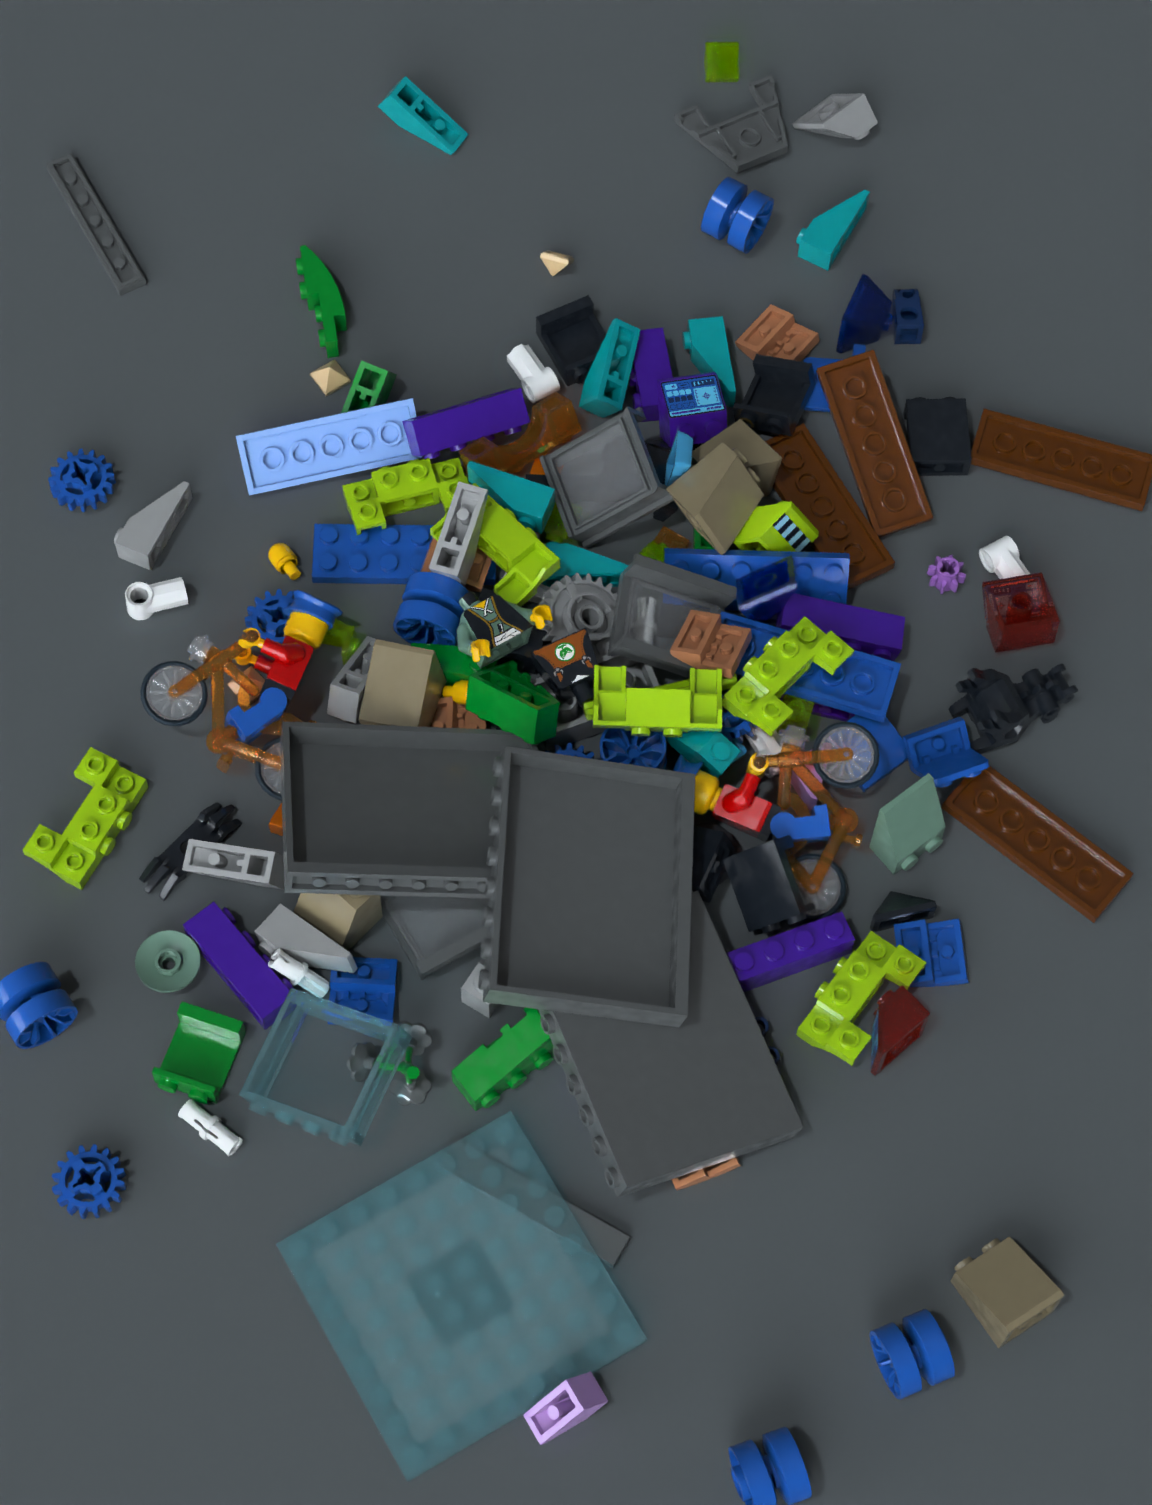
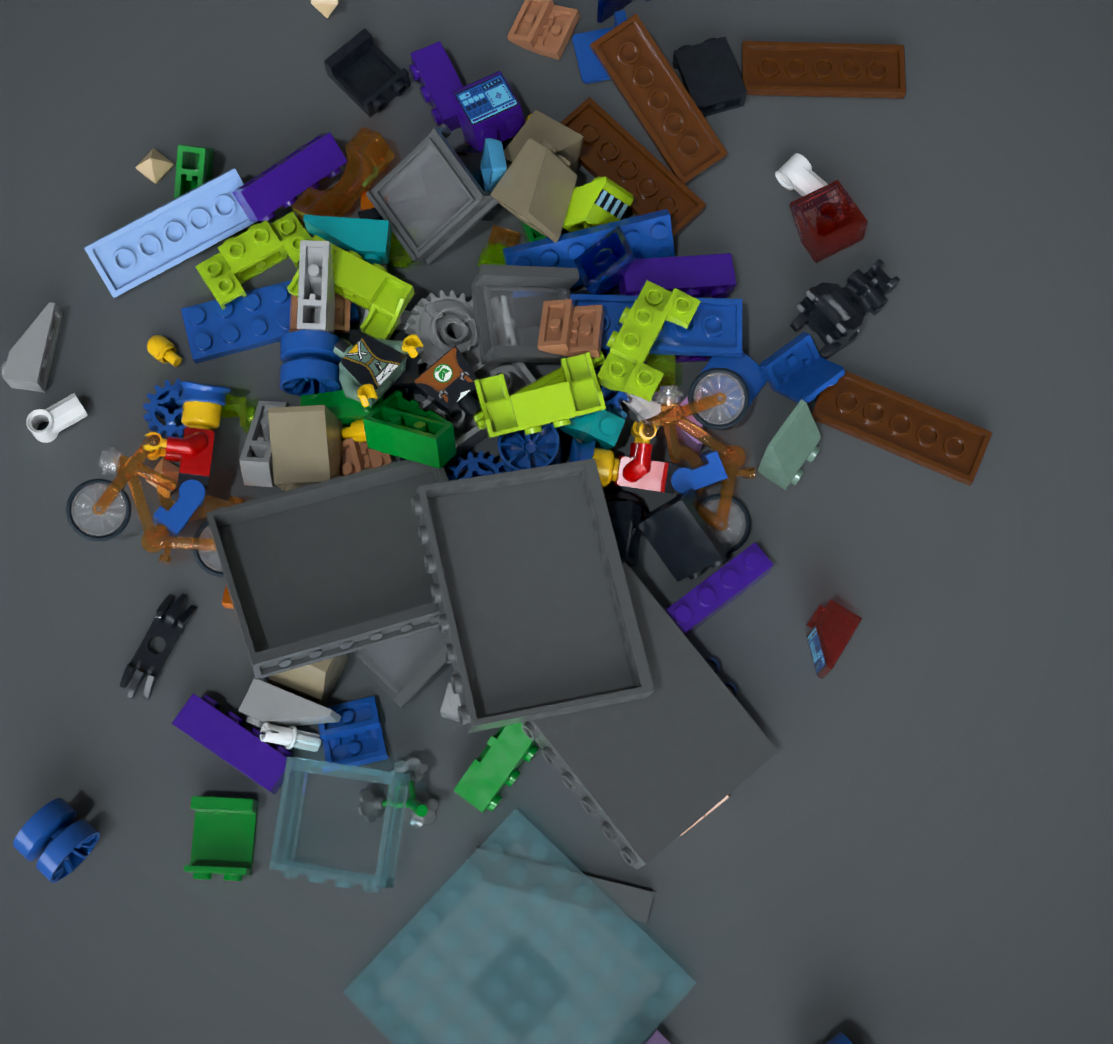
camera: 15 degrees left, 10 degrees up
(79, 1190) = (148, 998): blue gear -> none
(94, 825) = (63, 649): lime bracket -> none
(163, 948) = (153, 758): sand green dish -> none
(210, 1127) = (252, 902): white pin -> none
(235, 863) = (200, 650): light grey slope -> none
(322, 297) = (126, 93): green slope -> none
(535, 378) = (341, 119): white piece -> none
(581, 561) = (433, 280): teal slope -> none
(610, 372) = (405, 93): teal slope -> none
(710, 352) = (488, 53): teal slope -> none
(776, 395) = (558, 77): black panel -> none
(849, 992) = (777, 619): lime bracket -> none
(900, 909) = (801, 521): black slope -> none
(915, 1352) = (937, 925): blue wheel -> none
(939, 946) = (838, 554): blue slope -> none
(946, 574) = (753, 202): medium lavender gear -> none
(1005, 1290) = (994, 846): dark tan slope -> none

